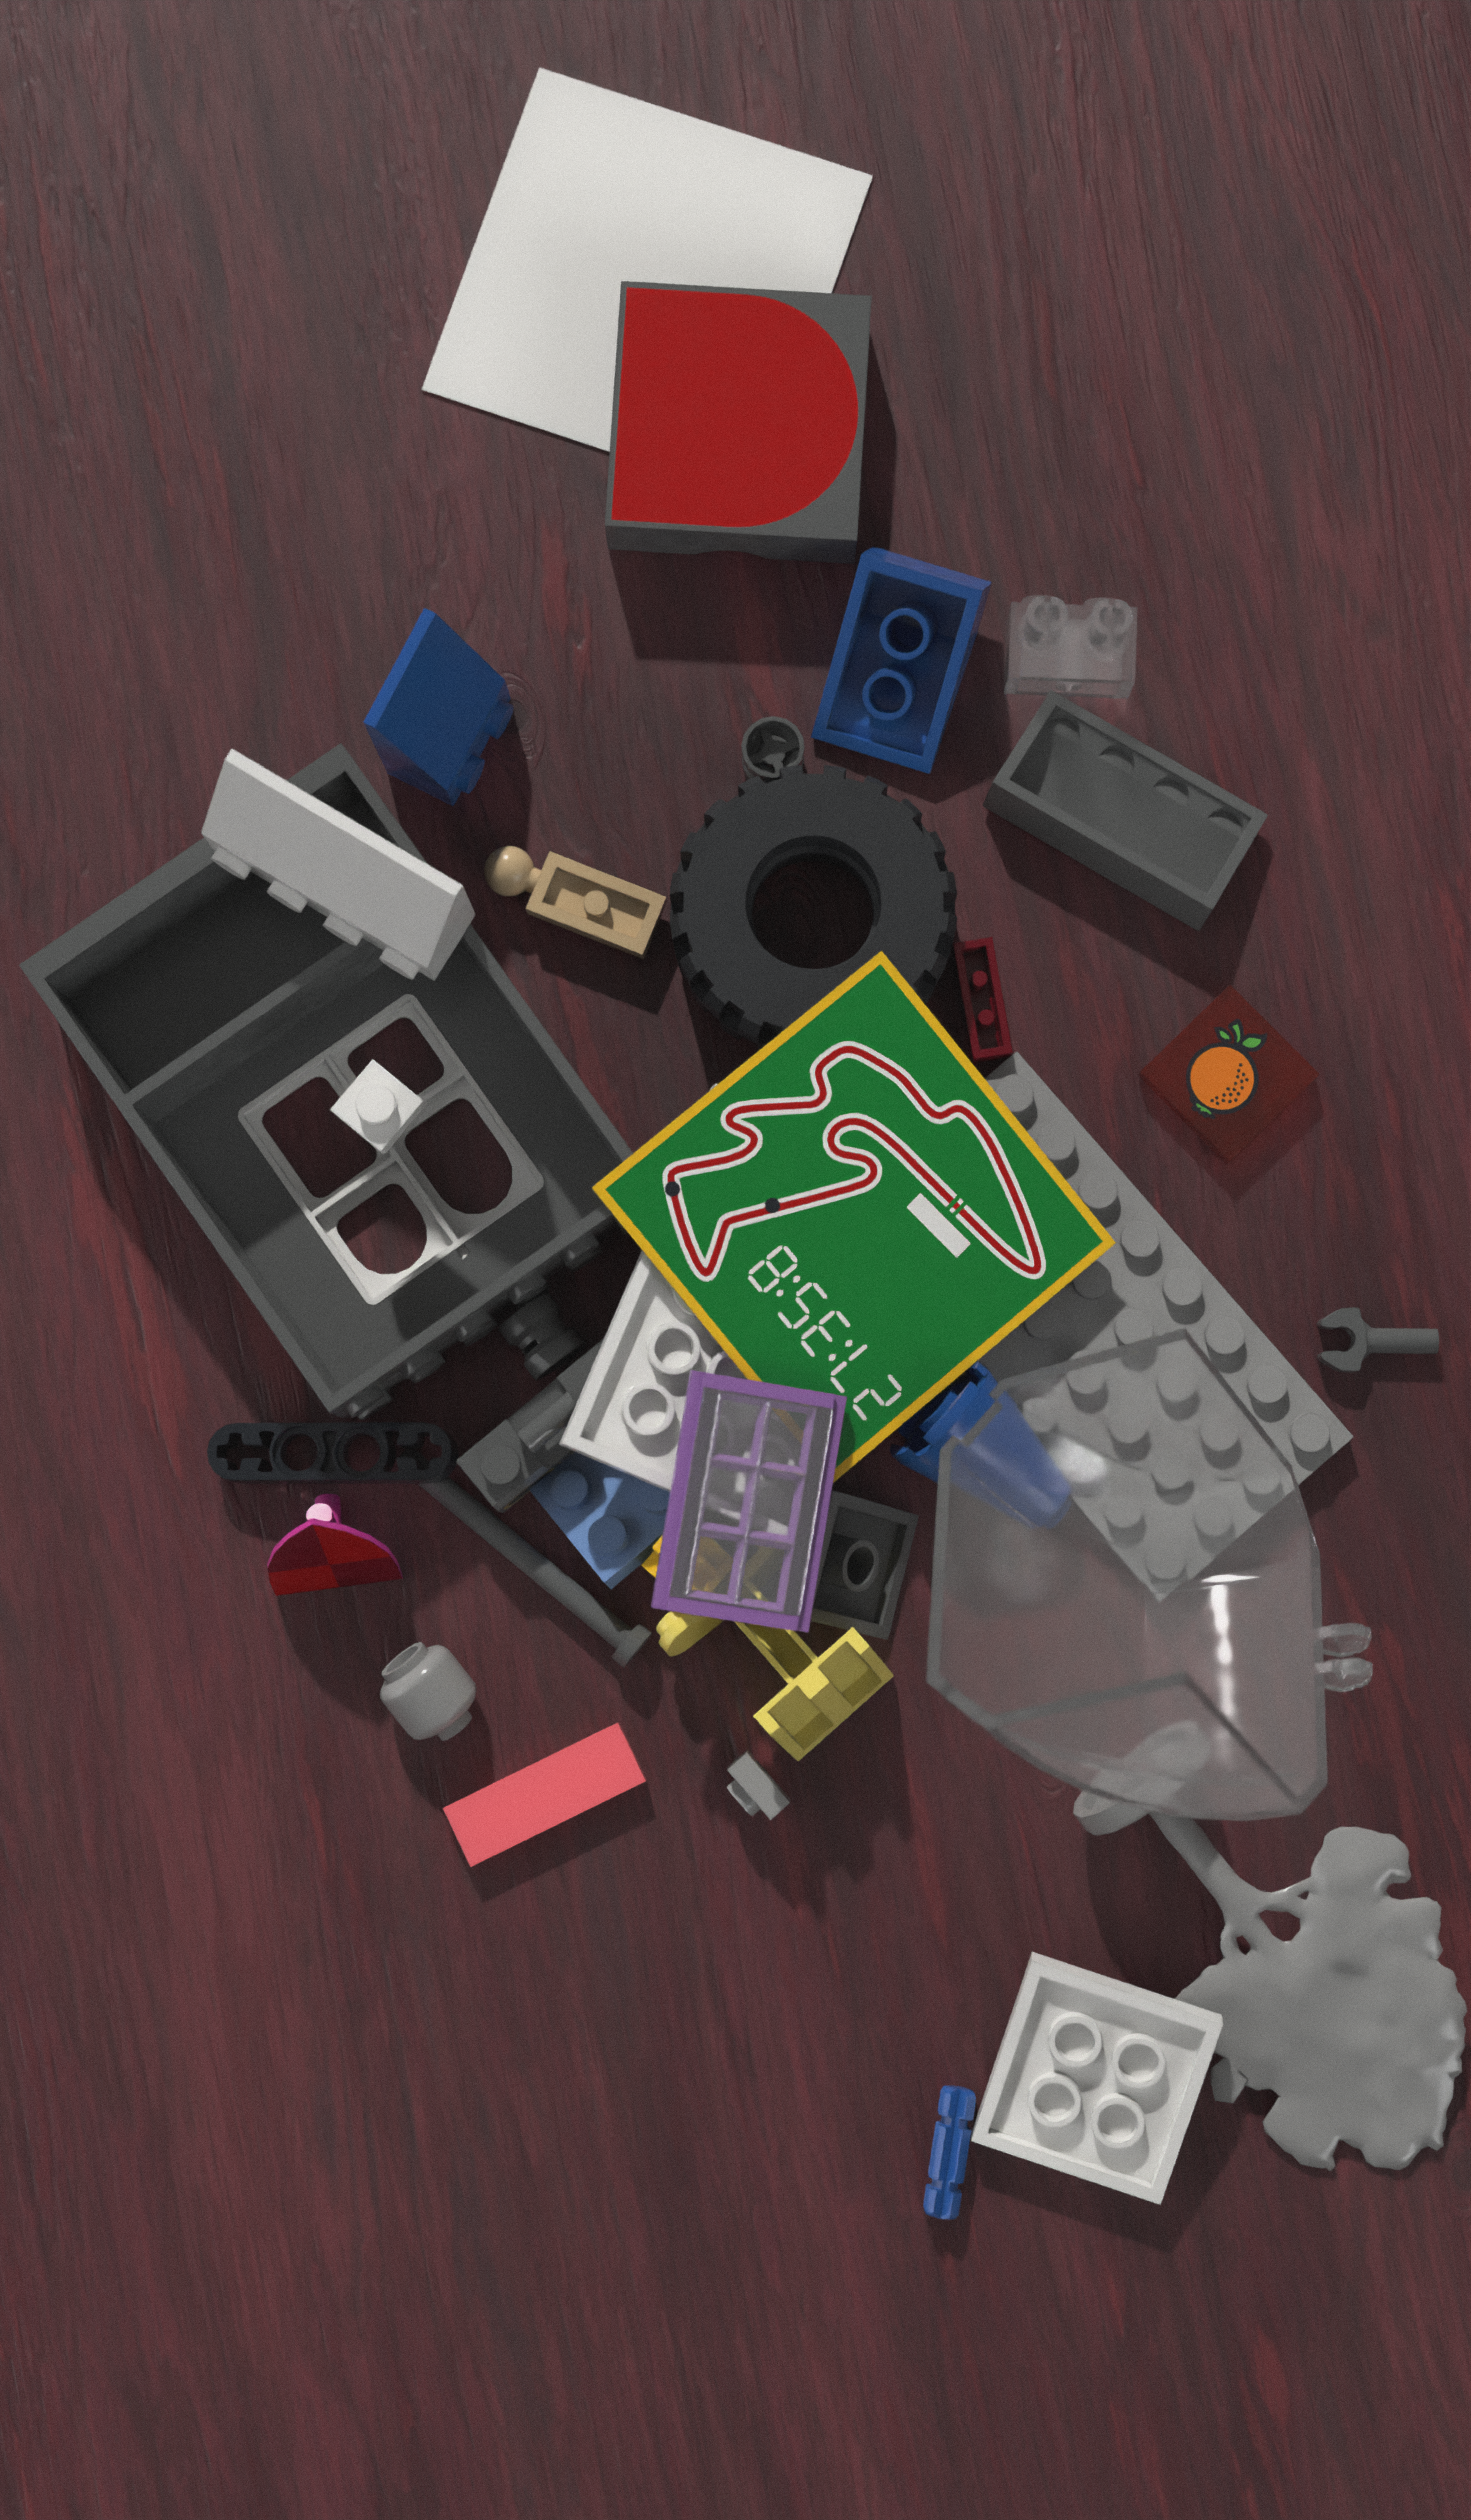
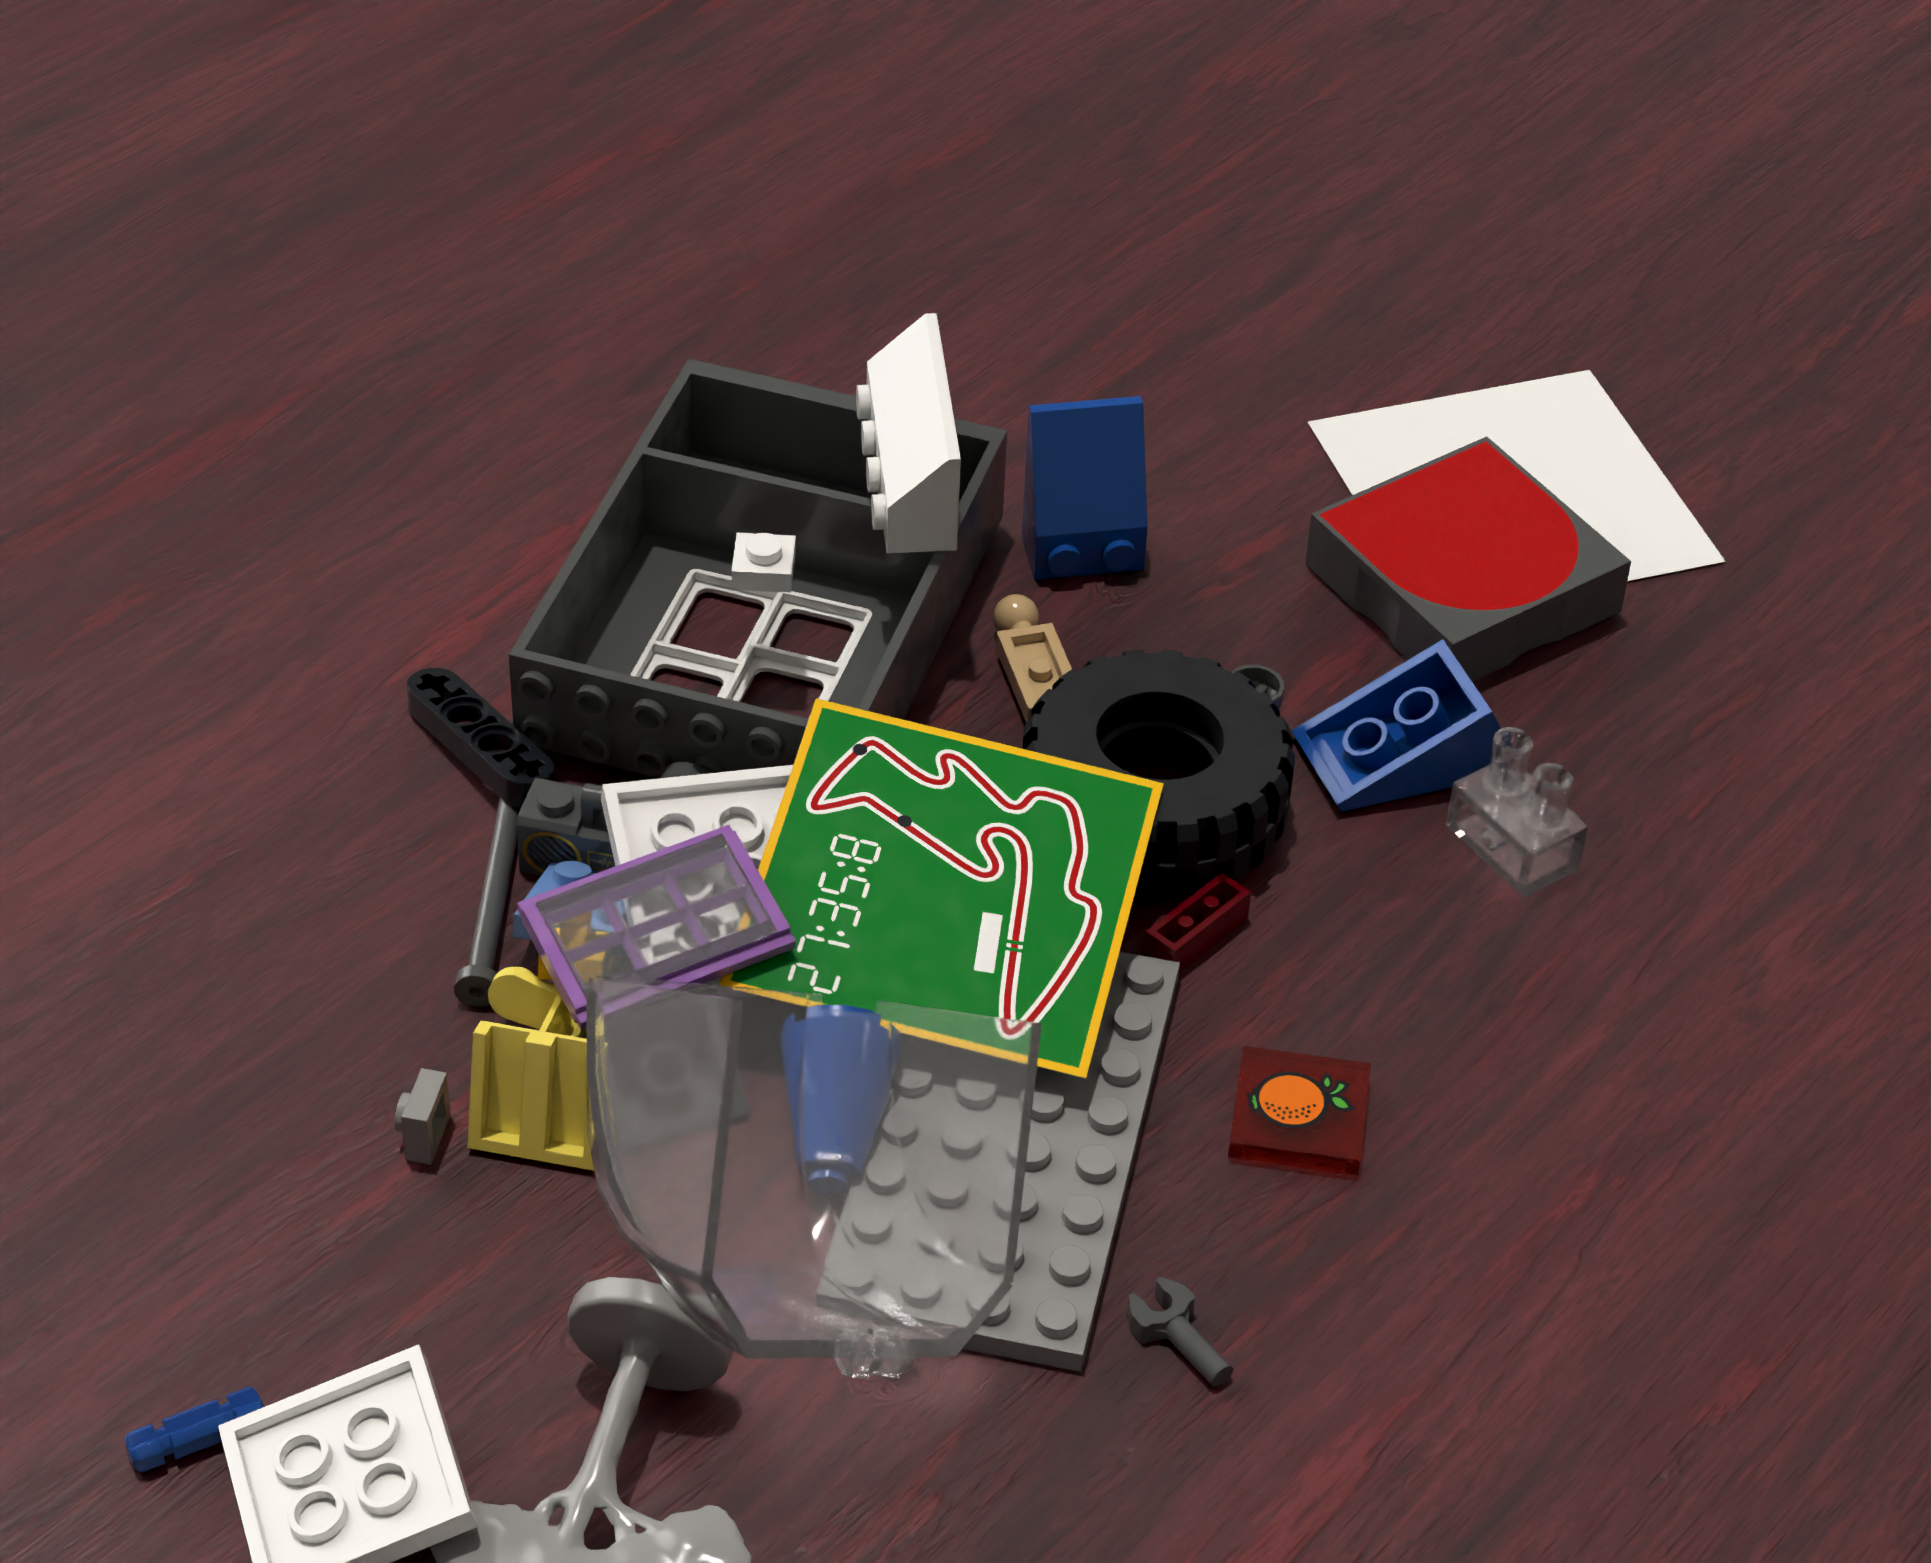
camera: 45 degrees right, 40 degrees down
(328, 1554) = (394, 760): shield -> none
(428, 1692) = (334, 879): light grey head -> none
(544, 1794) = (307, 1002): coral tile -> none
(1124, 810) = (1435, 930): dark grey slope -> none

